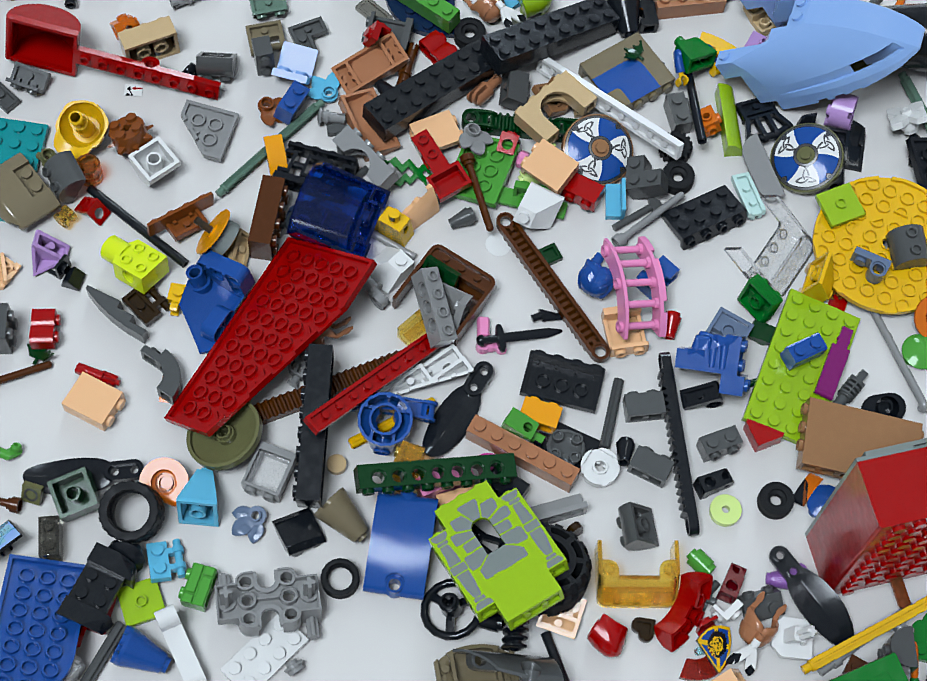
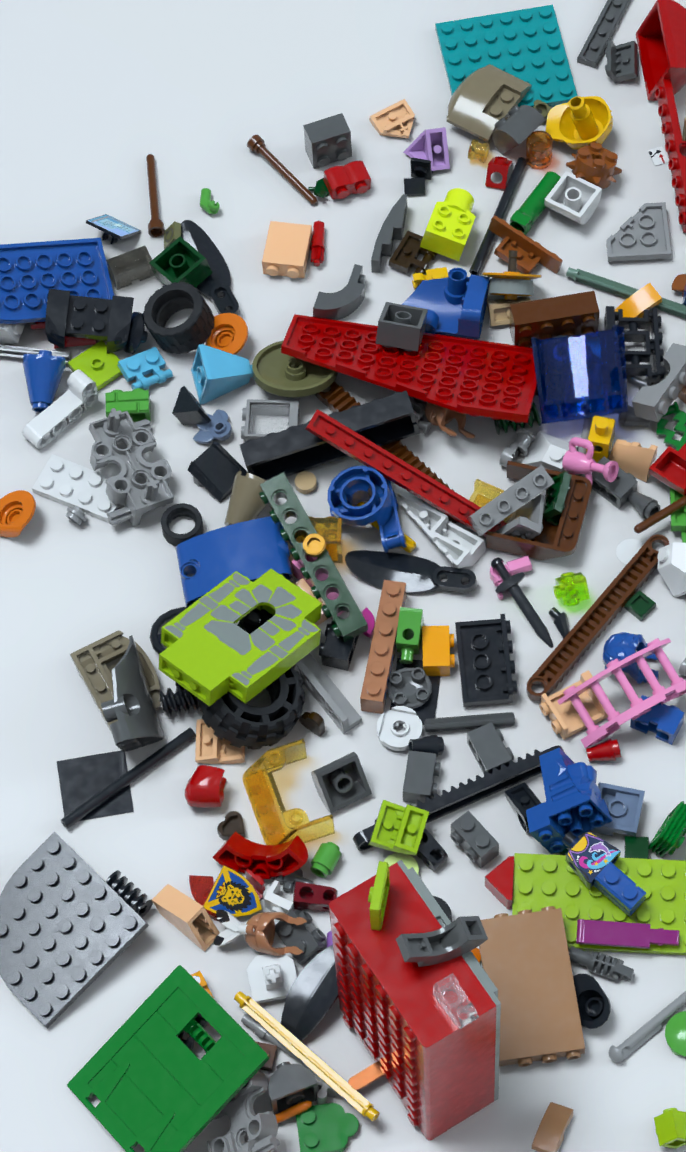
camera: 80 degrees right, 5 degrees down
(140, 192) = (534, 204): none -> green piece
(226, 535) = (188, 409): none -> black slope
(228, 331) = (401, 326): none -> dark grey brick
(416, 245) = (583, 463): none -> bright pink piece
(433, 232) = (616, 491): none -> dark grey brick
(433, 465) = (314, 545): none -> tile
(522, 295) = (571, 588): none -> clear neon green brick
(699, 494) = (399, 828): none -> lime slope
(771, 362) = (589, 855): none -> torso
(899, 480) = (378, 895): none -> lime plate

